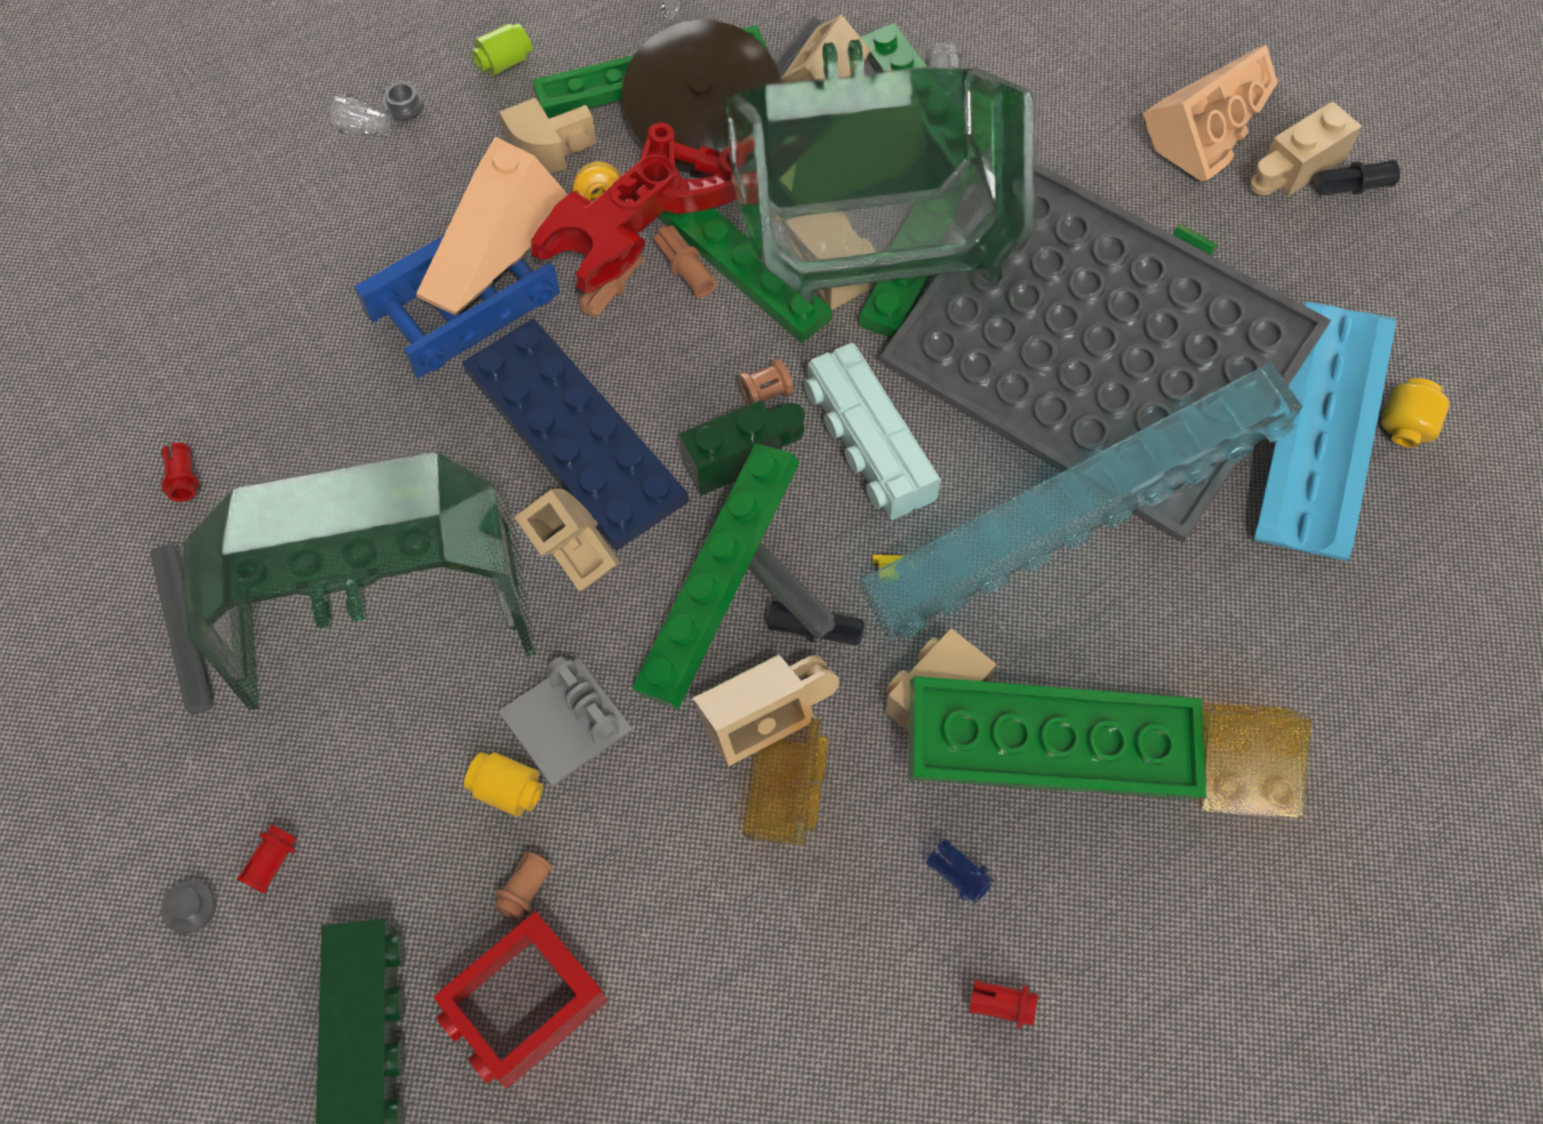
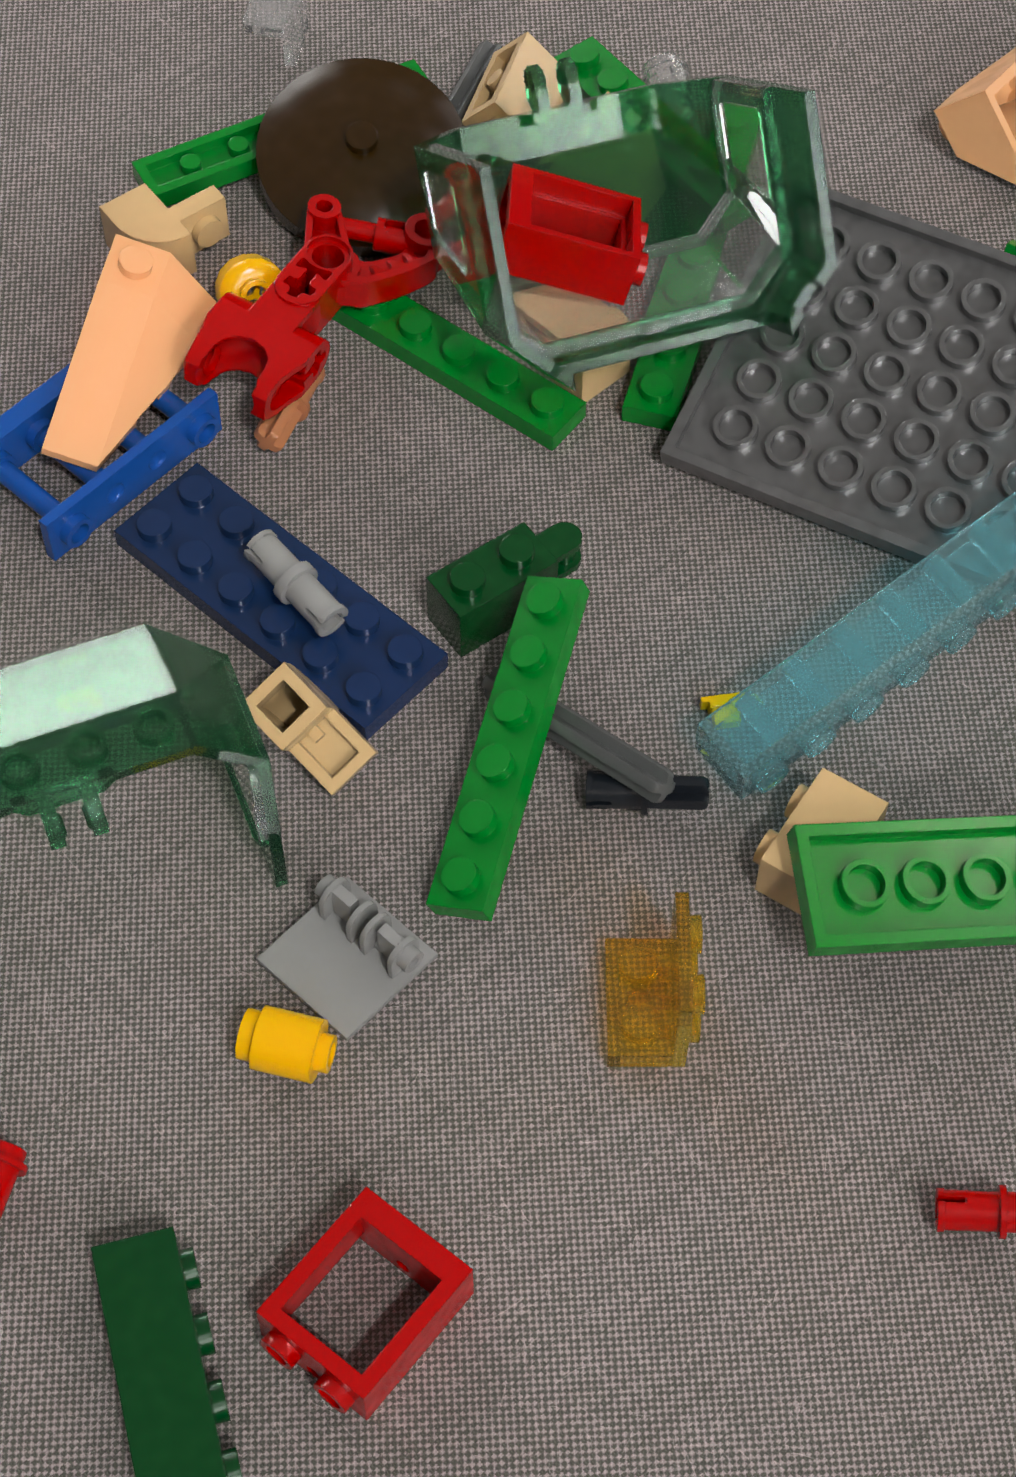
camera: 10 degrees left, 5 degrees down
(501, 48) = (80, 127): lime brick -> none
(522, 887) = (331, 1181): nougat pin -> none
(582, 423) = (295, 582): none -> light grey pin
(685, 261) = (381, 367): nougat axle -> none
(763, 705) = (601, 897): tan brick -> none
(776, 373) = (532, 490): nougat bush -> none
(845, 161) = (572, 234): none -> red window
(872, 431) = (669, 546): light aqua brick -> none
(962, 873) = (892, 1063): clear blue pin -> none

